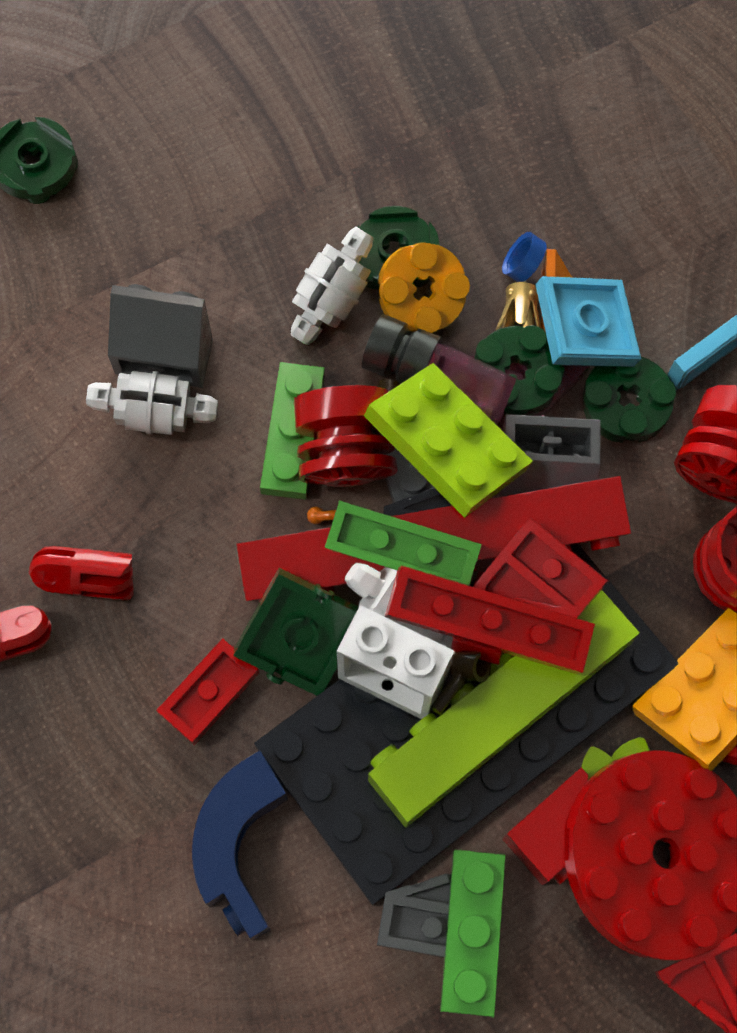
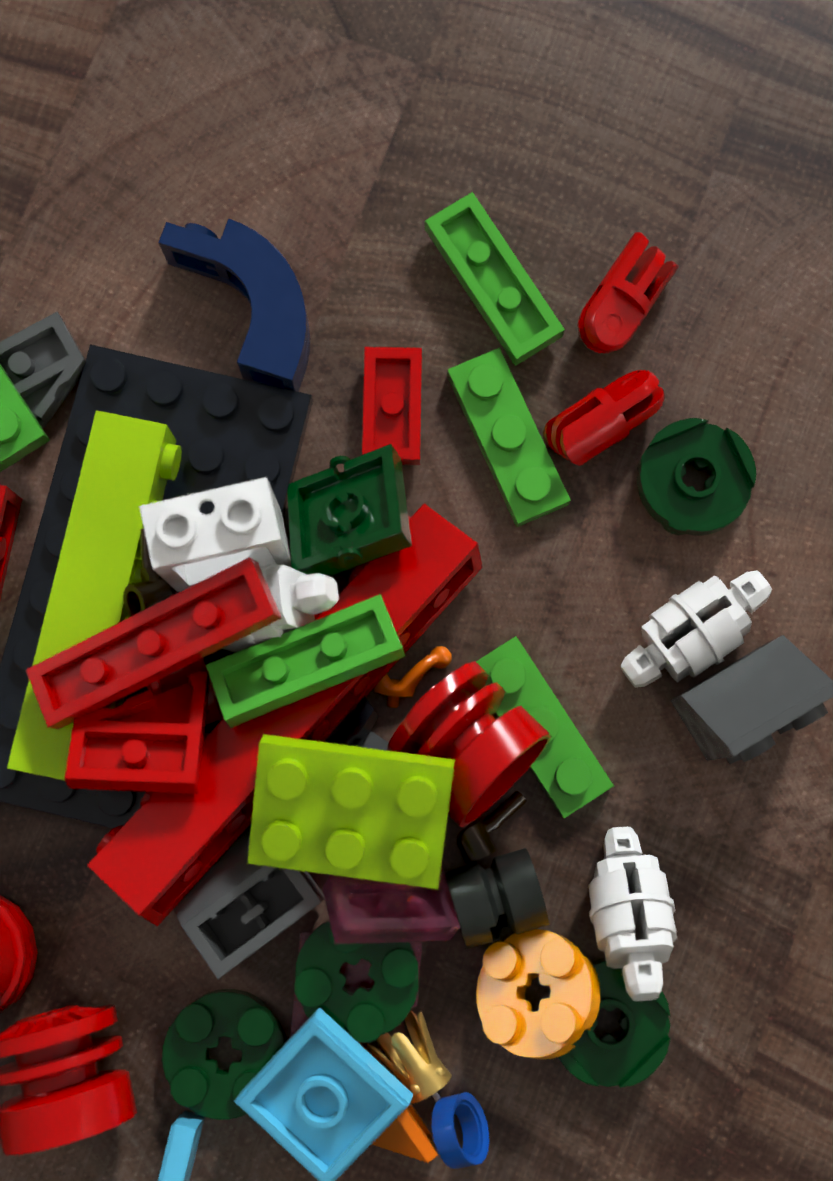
camera: 140 degrees right, 10 degrees up
(54, 470) = (708, 447): none -> dark green plate
(66, 723) = (494, 279): none -> bright green plate
(153, 615) = (508, 437): none -> bright green plate

